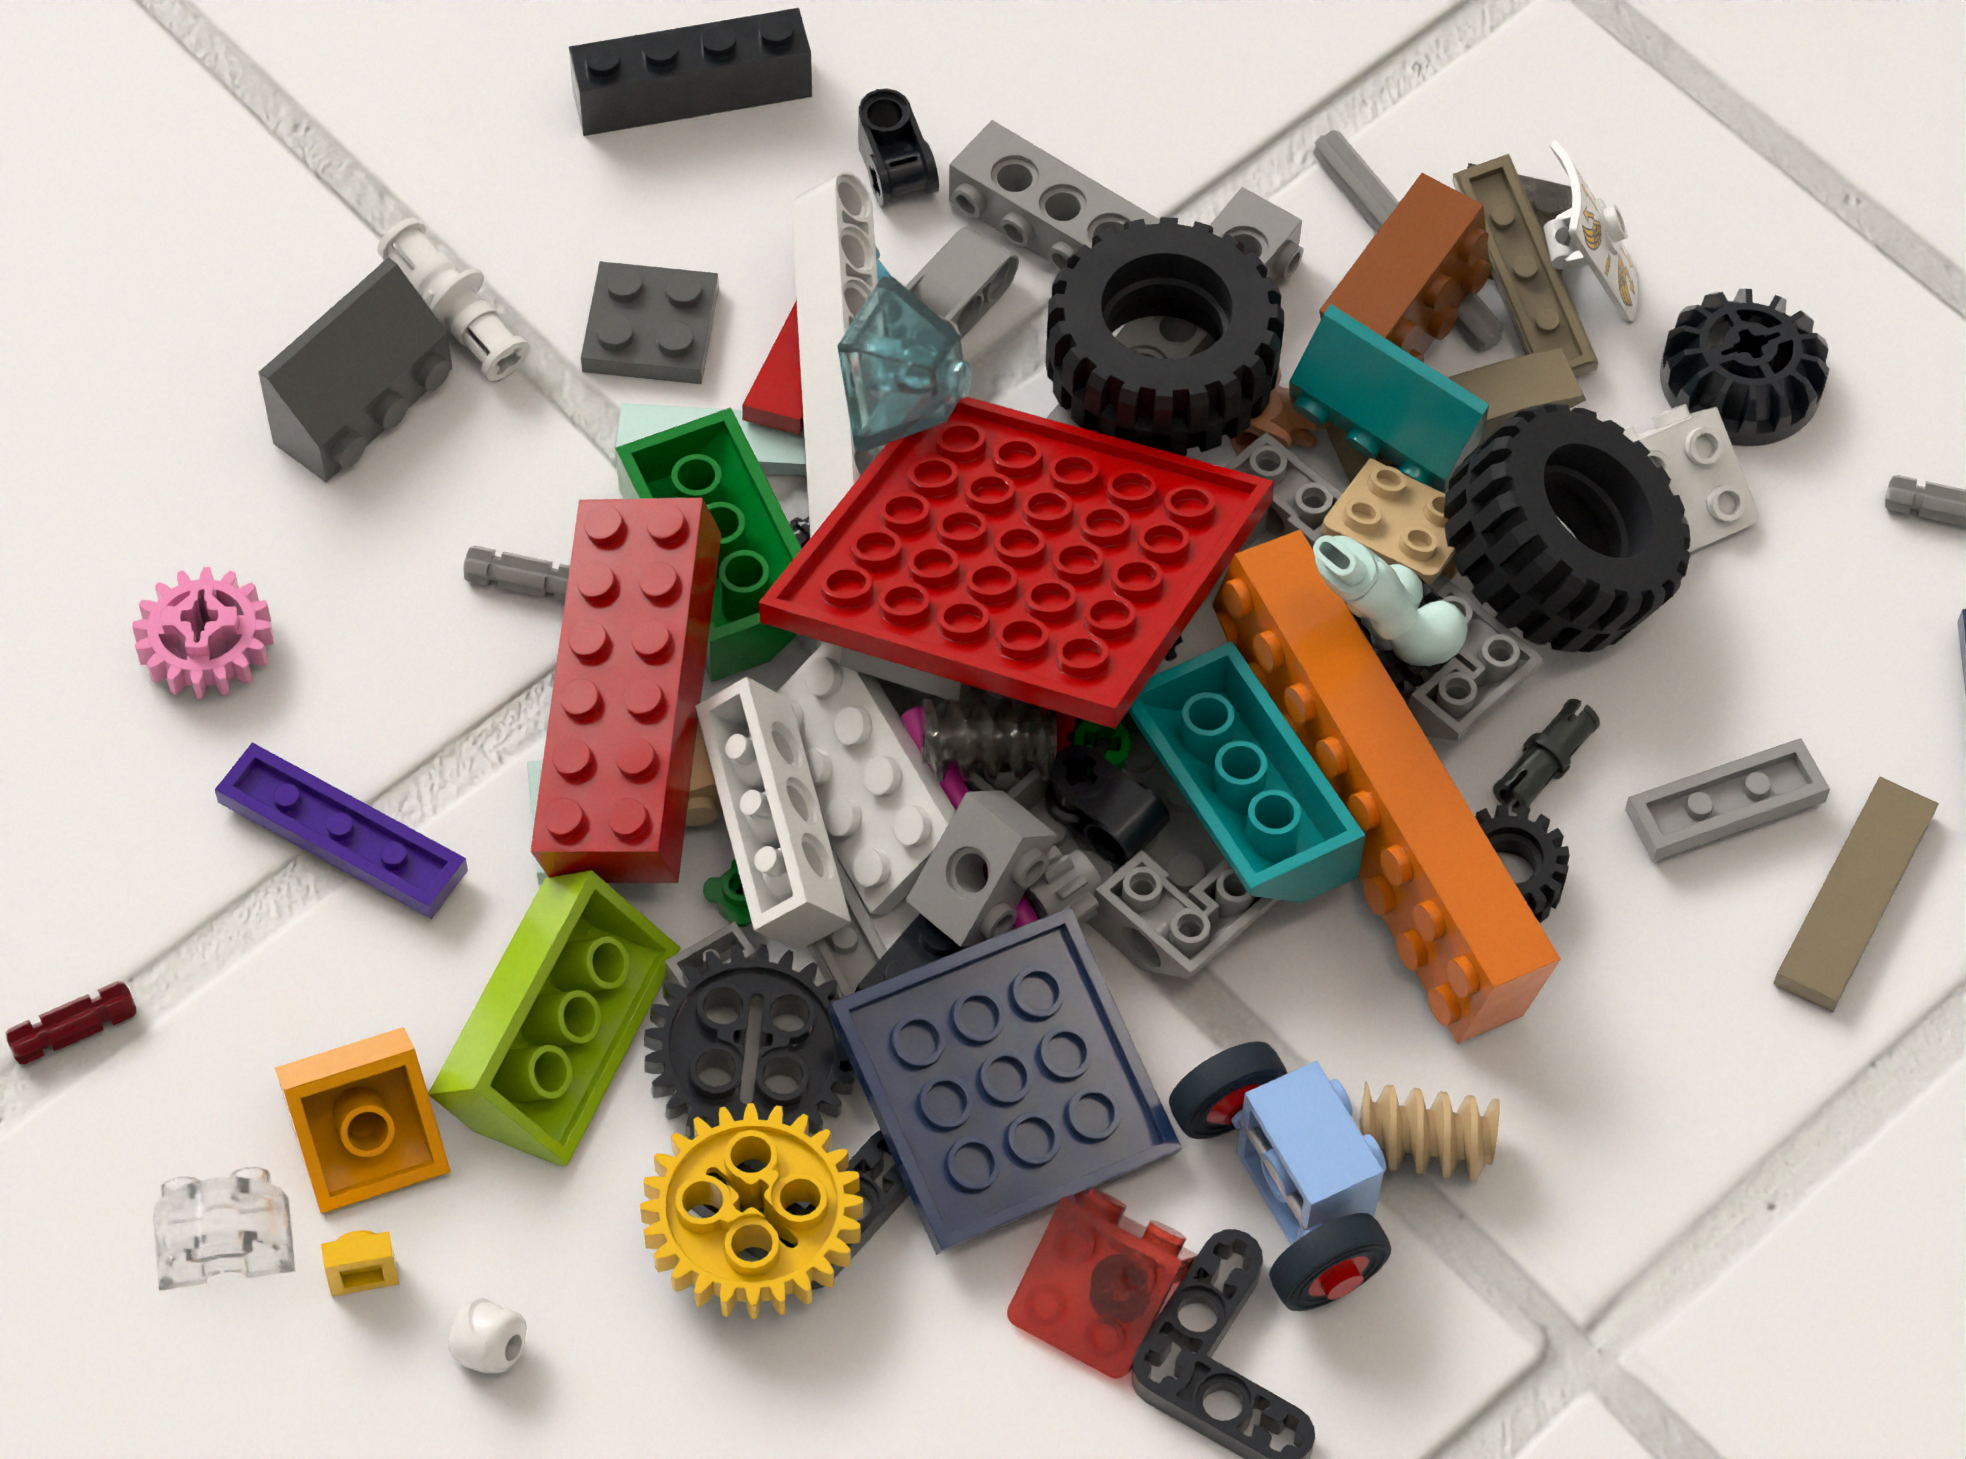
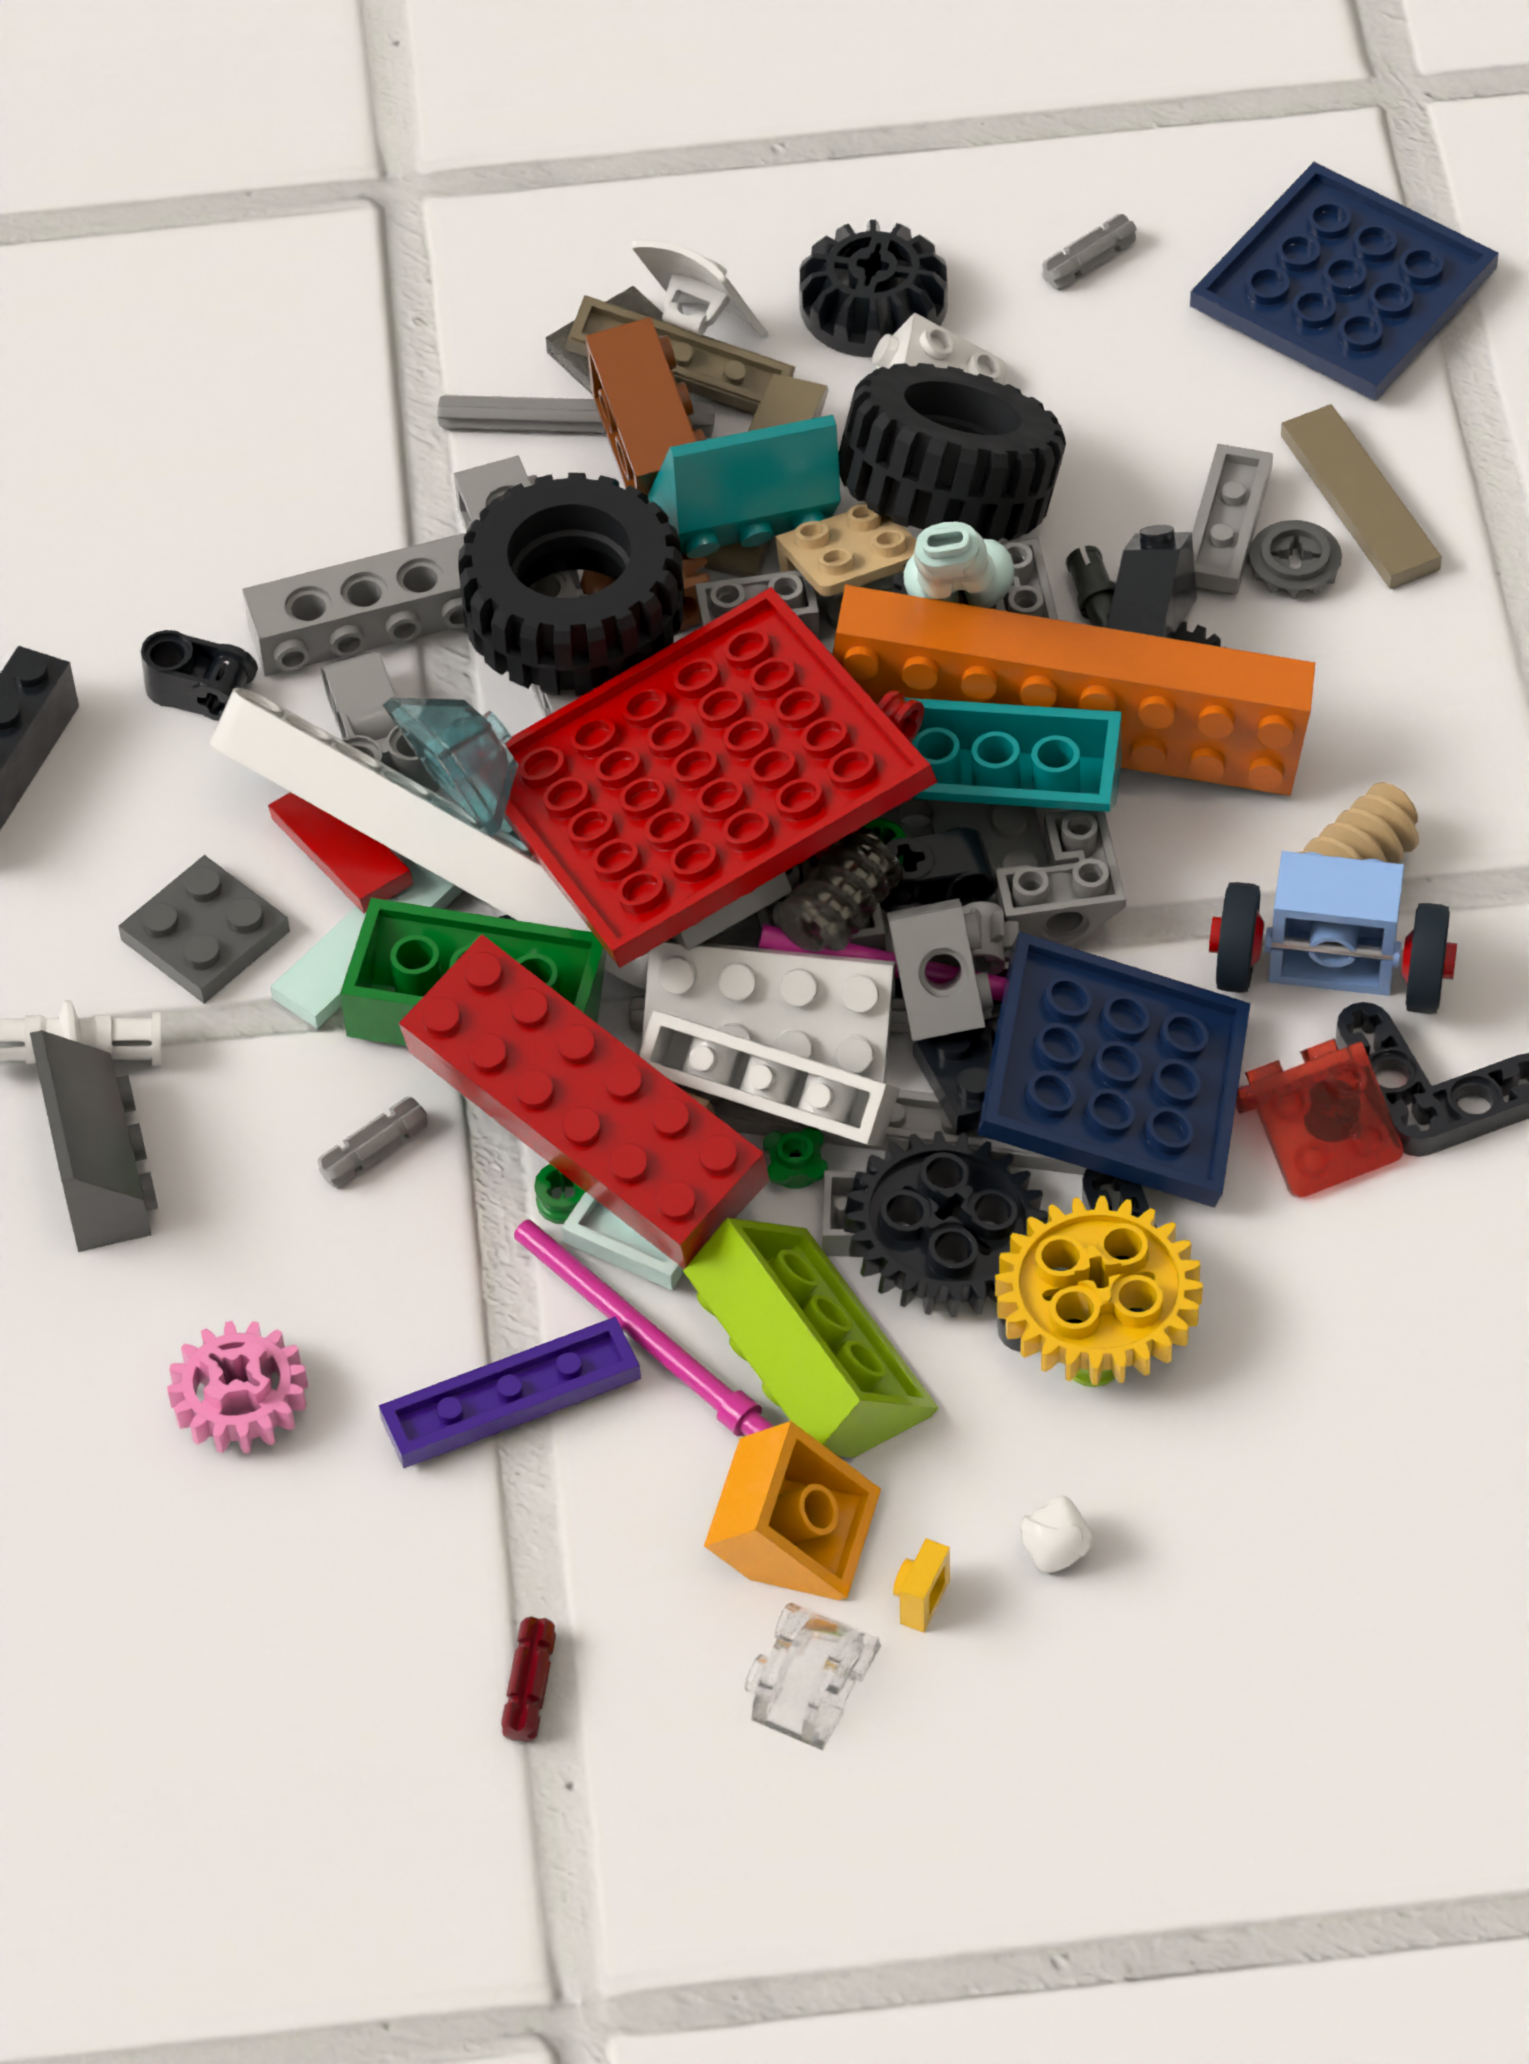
camera: 50 degrees left, 5 degrees down
(448, 1008) = (733, 1409): none -> dark pink bar
(1195, 664) = (905, 715): none -> red bush
(1560, 785) = (1154, 582): none -> black slope
(1737, 859) = (1316, 546): none -> dark grey gear

